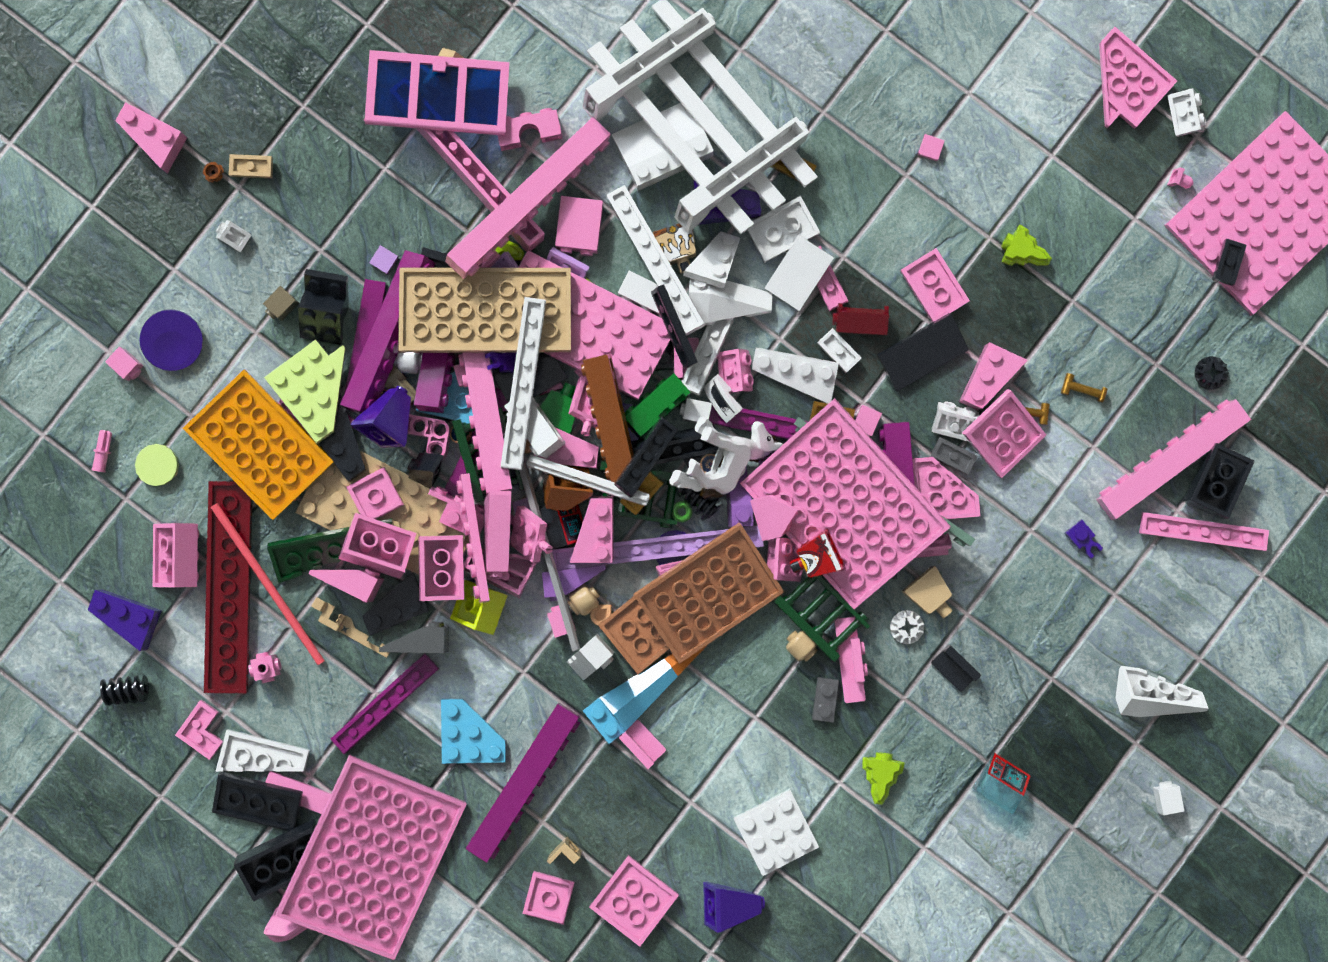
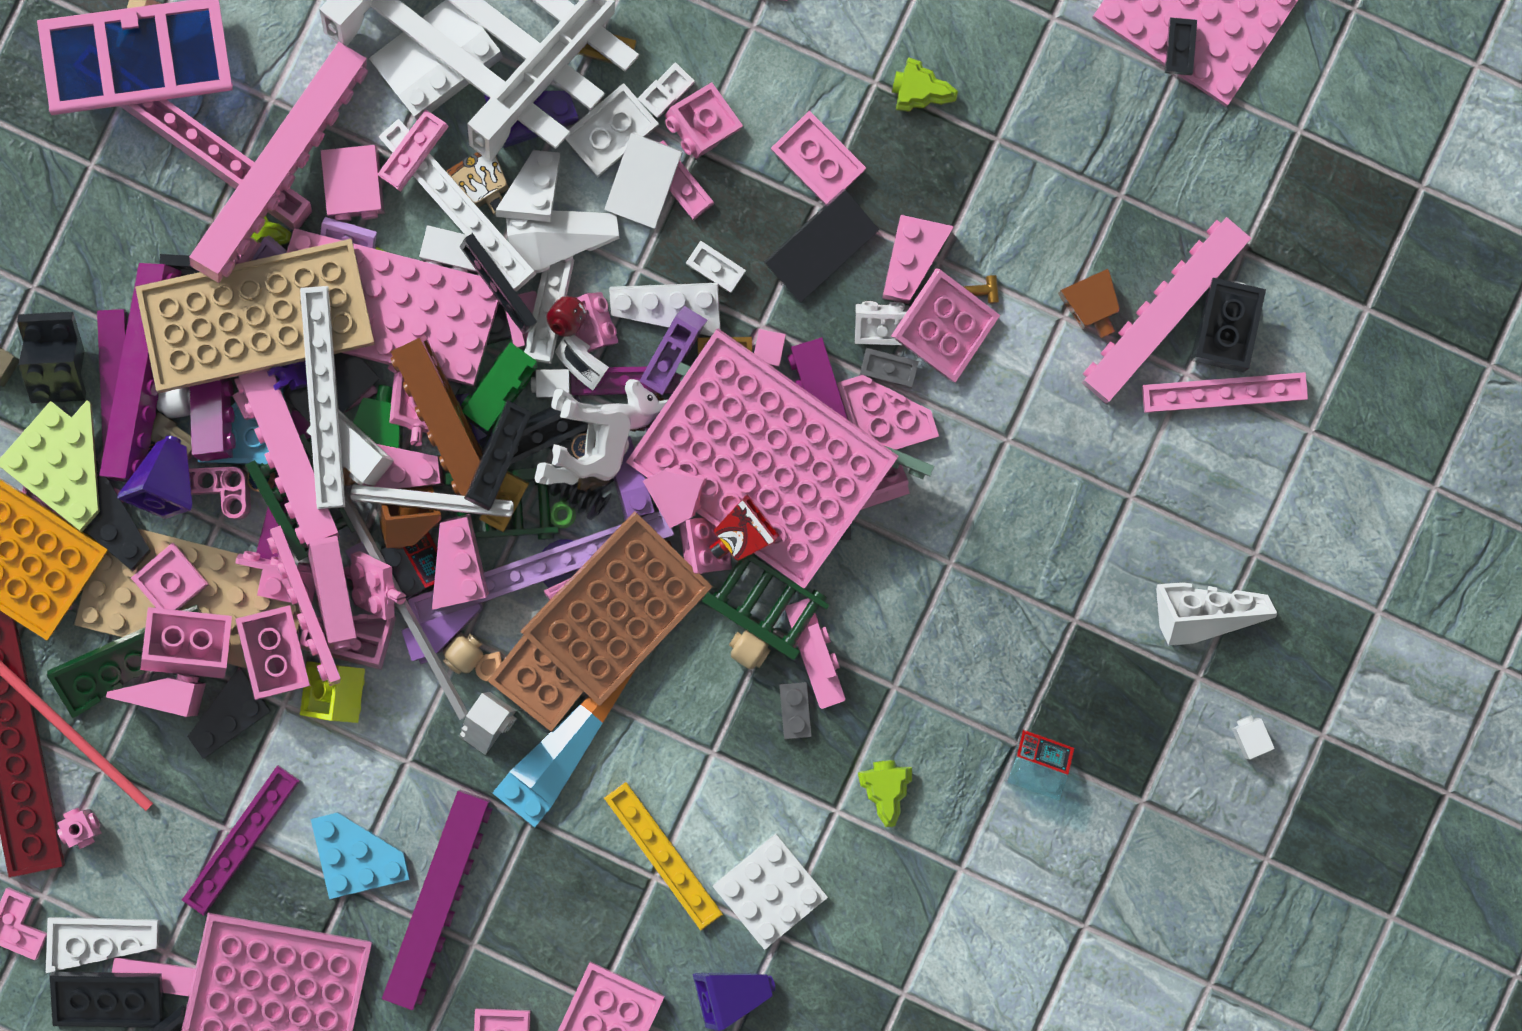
camera: 10 degrees left, 0 degrees up
(342, 621) = (166, 747): tan piece -> none
(384, 259) = (115, 281): lavender tile -> none
(425, 468) = (226, 532): black slope -> none
(427, 639) = (279, 745): dark grey slope -> none
(544, 122) = (280, 61): bright pink arch -> none
(557, 621) = (434, 689): bright pink brick -> none
(568, 848) = (511, 969): tan panel -> none
(630, 211) = (413, 150): none -> bright pink tile
(642, 743) = (577, 817): bright pink panel -> none
(701, 787) = (663, 856): none -> yellow tile
(719, 362) = (566, 316): none -> dark red head
(794, 406) = (673, 349): none -> medium lavender slope
(831, 208) = (666, 90): none -> white slope
(853, 237) = (702, 121): none -> bright pink plate
(861, 320) = (734, 223): dark red brick -> none
(899, 621) = (873, 608): white gear -> none
(930, 592) = (897, 546): tan torso -> none
(955, 668) = (949, 634): black panel -> none
(1070, 385) = (1016, 245): pearl gold piece -> none
(1082, 536) = (1073, 432): dark purple plate -> none
(1119, 441) = (1092, 302): none -> dark orange torso
(1205, 379) = (1185, 201): black gear -> none

